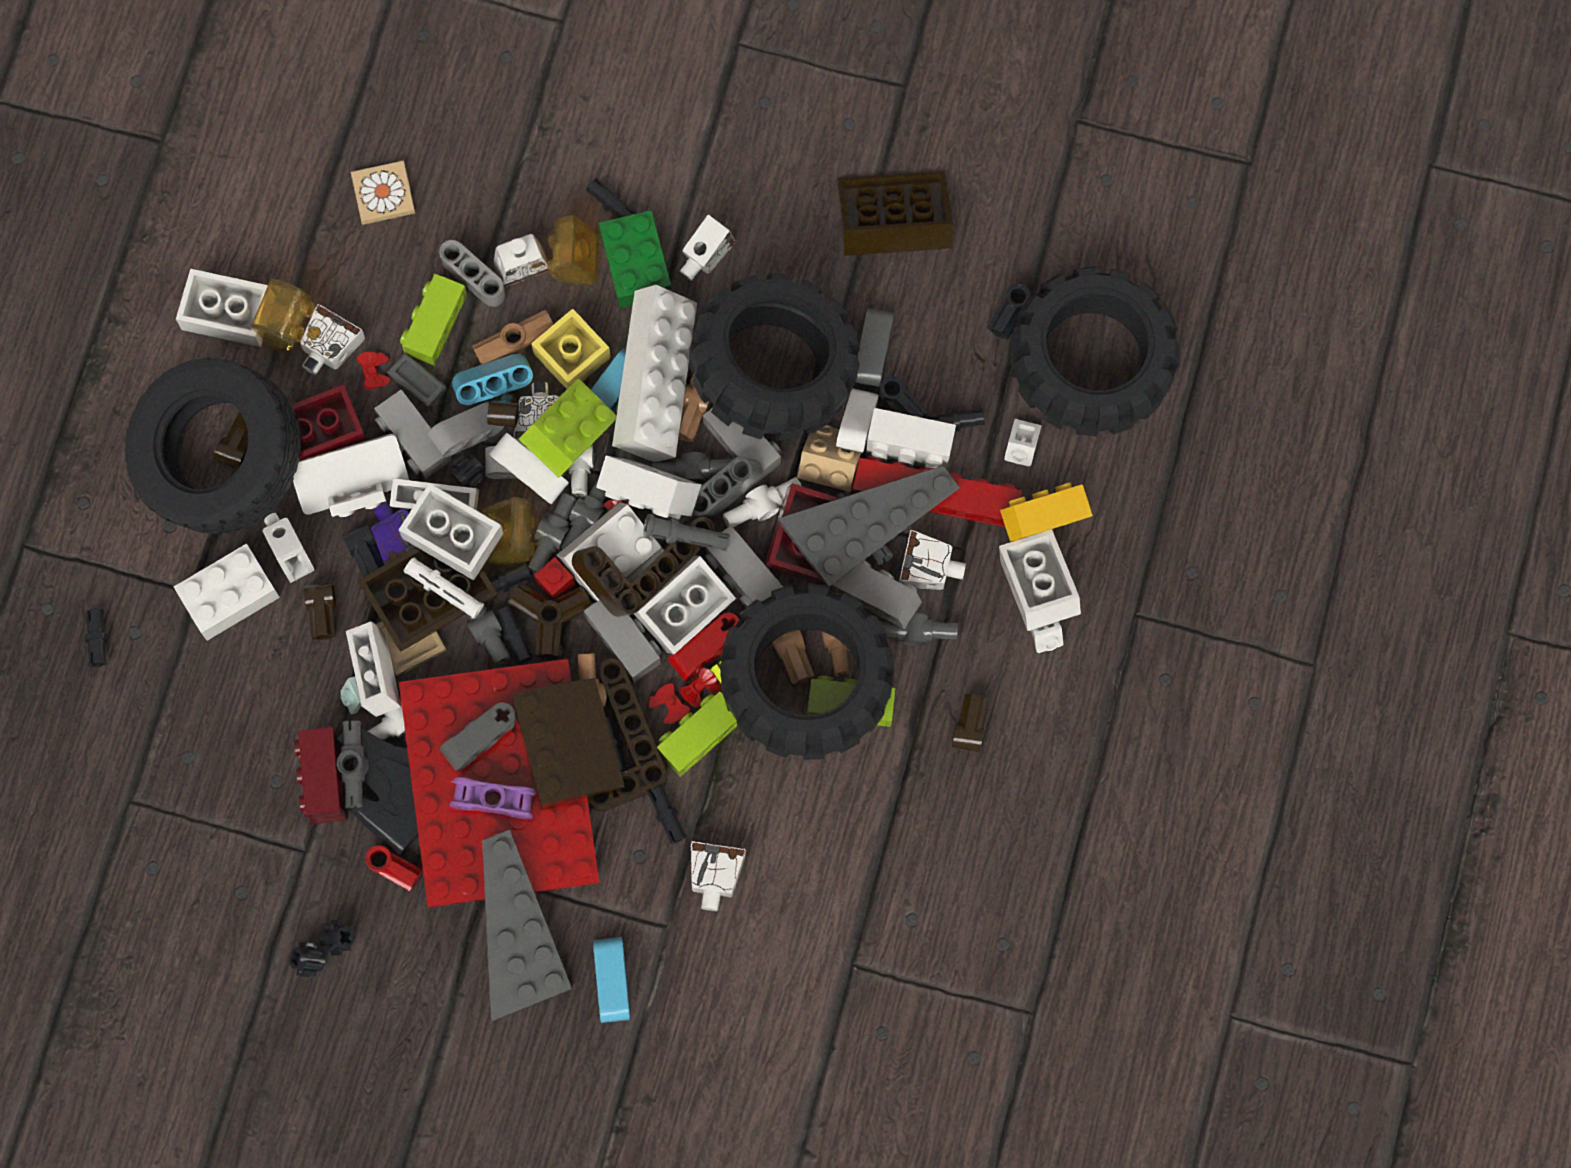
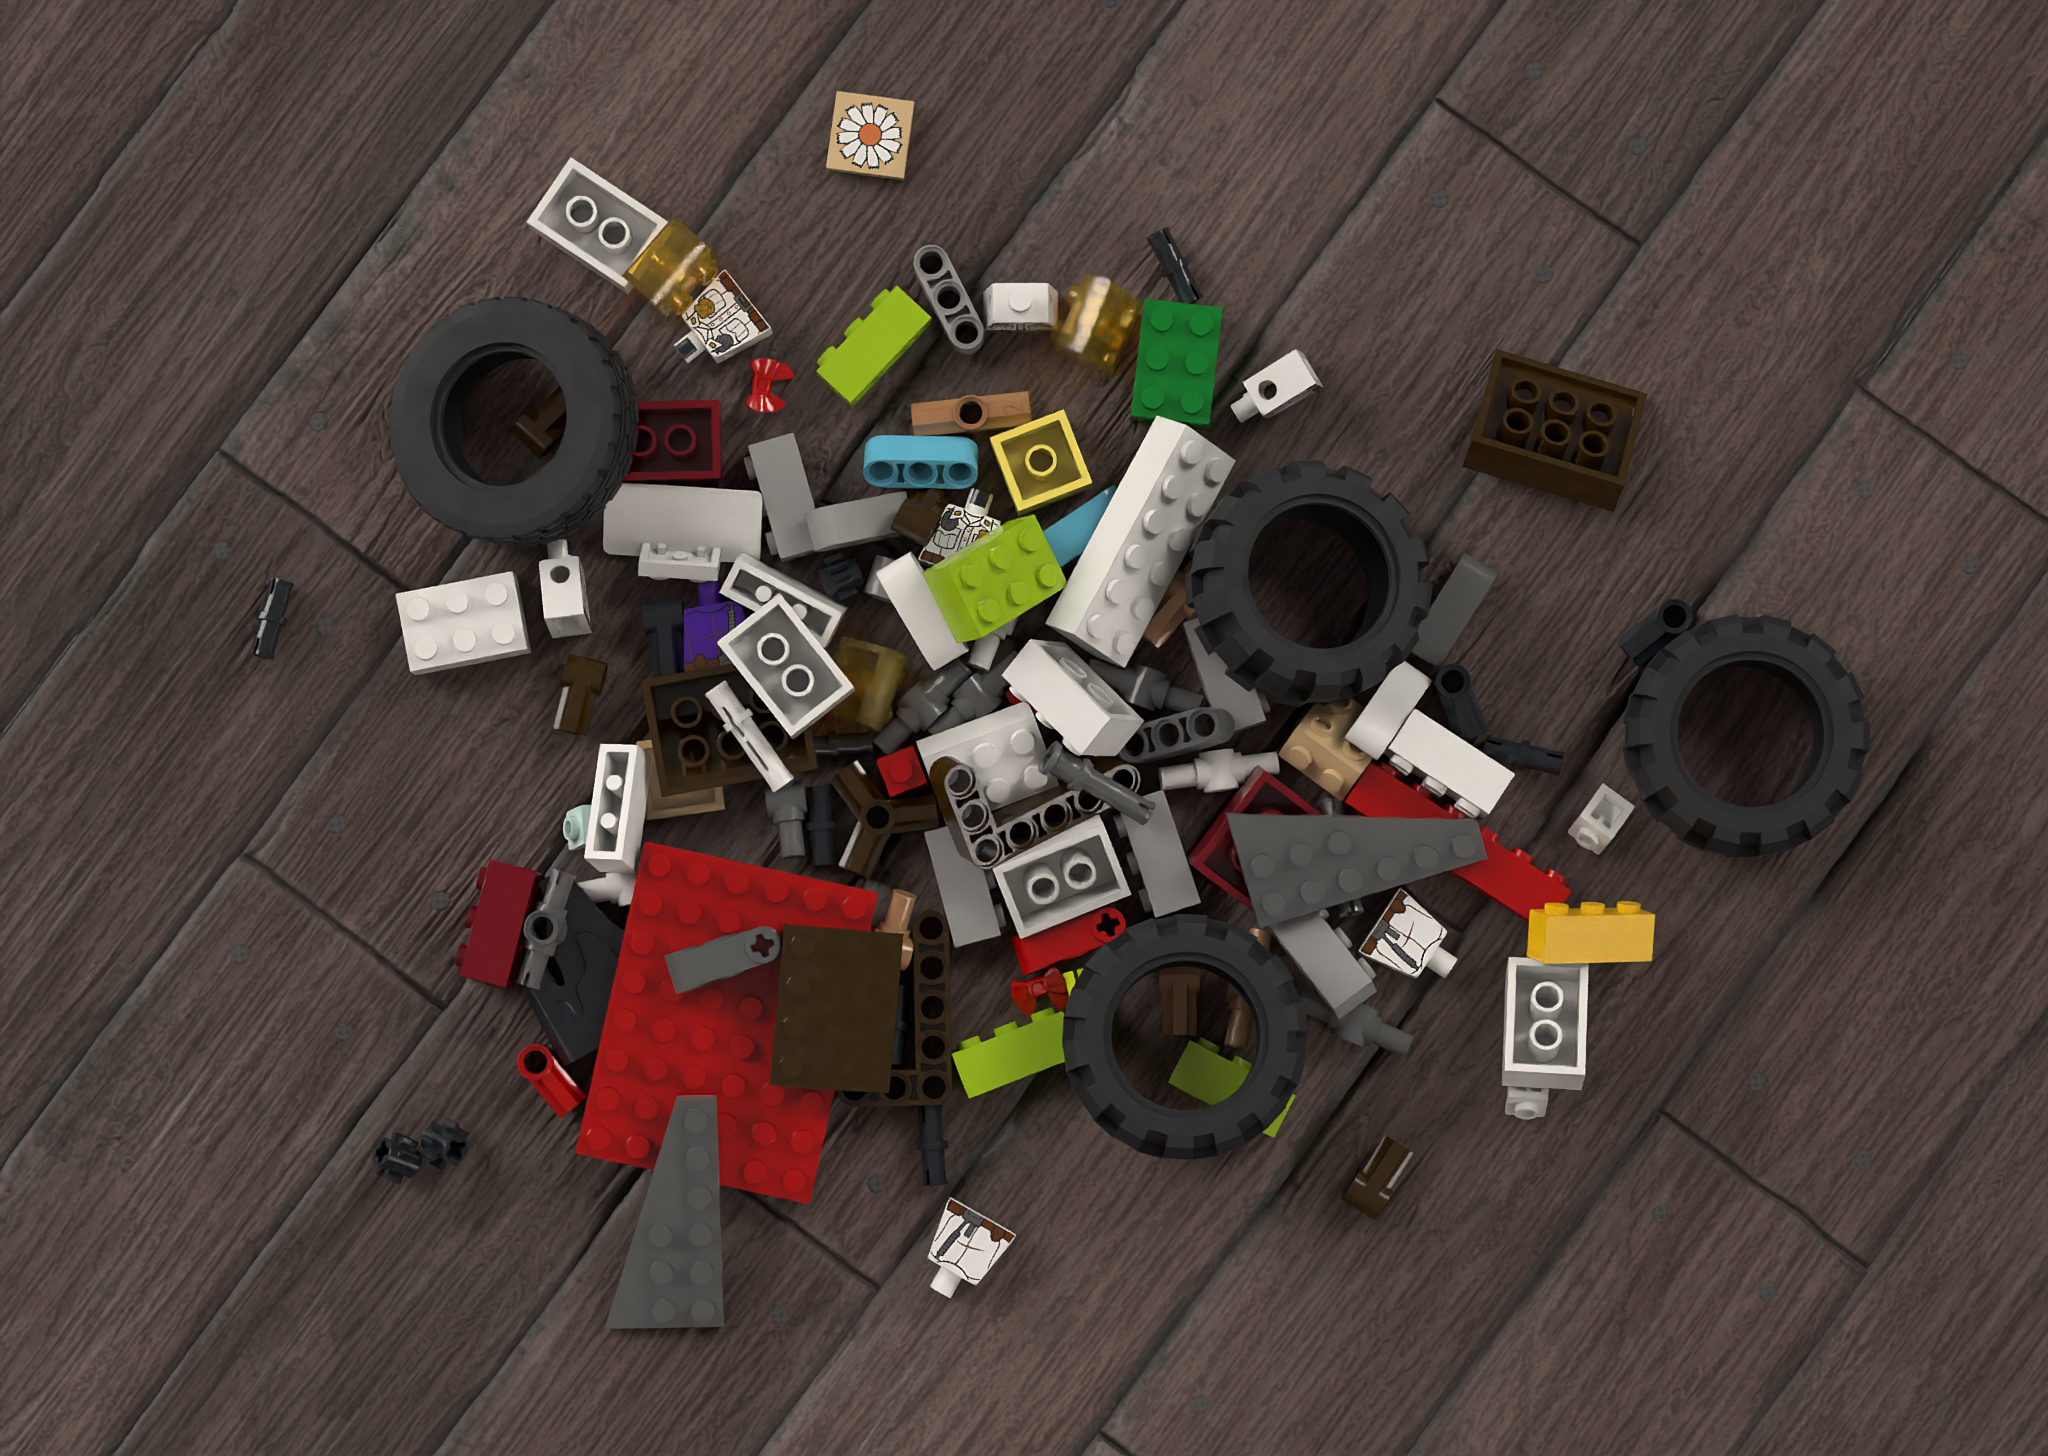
camera: 25 degrees right, 10 degrees up
(417, 380) = (820, 421): dark grey tile -> none
(476, 794) = (733, 1054): medium lavender piece -> none
(611, 979) = (779, 1335): medium azure beam -> none
(667, 696) = (992, 984): red piece -> none

